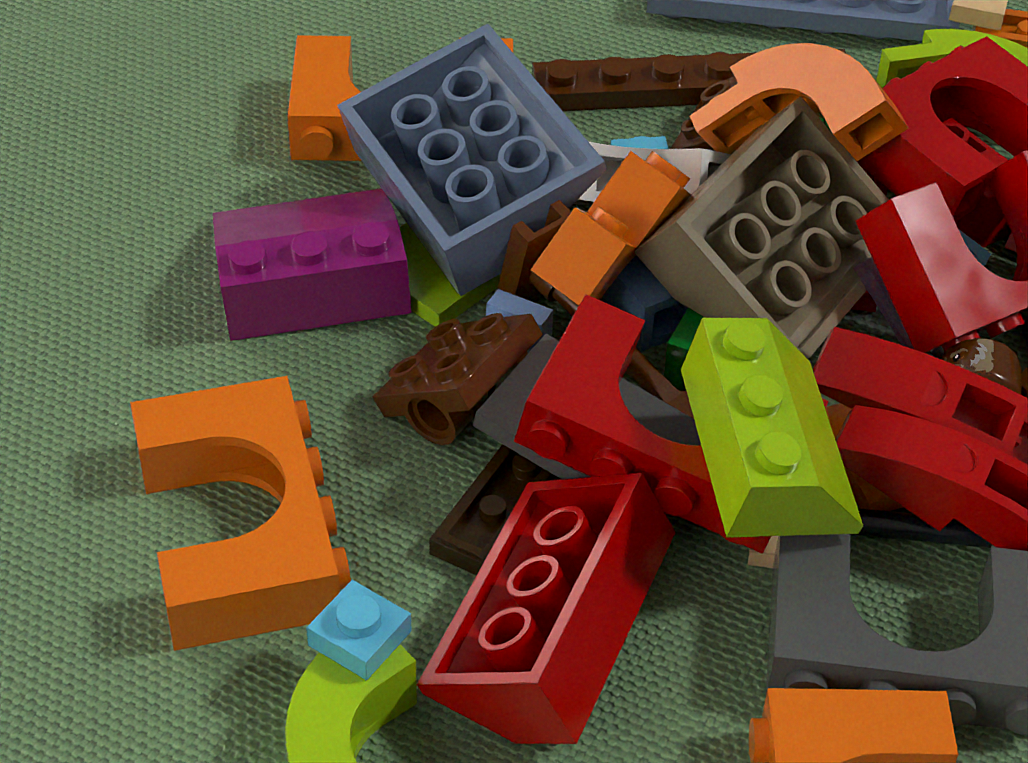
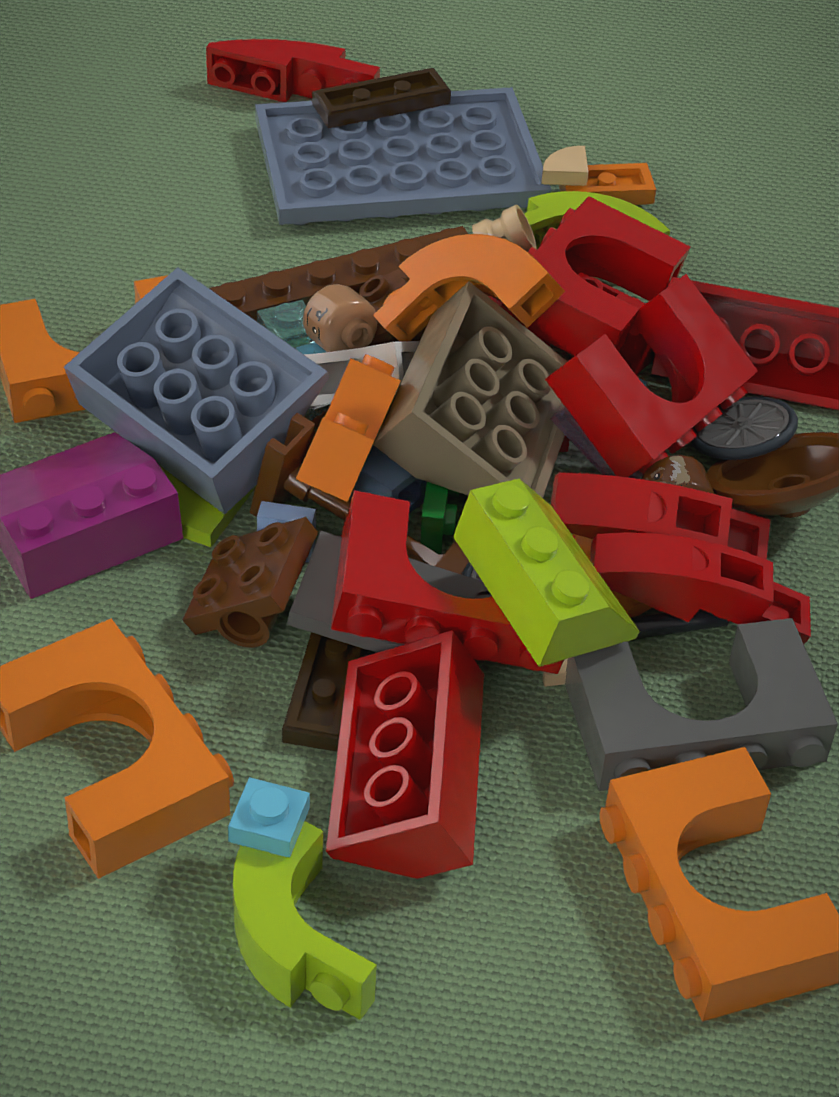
camera: 20 degrees left, 0 degrees up
(612, 116) = (286, 322): none -> clear light blue plate
(658, 115) = (339, 319): none -> medium nougat head
(884, 59) = (510, 226): none -> tan wheel

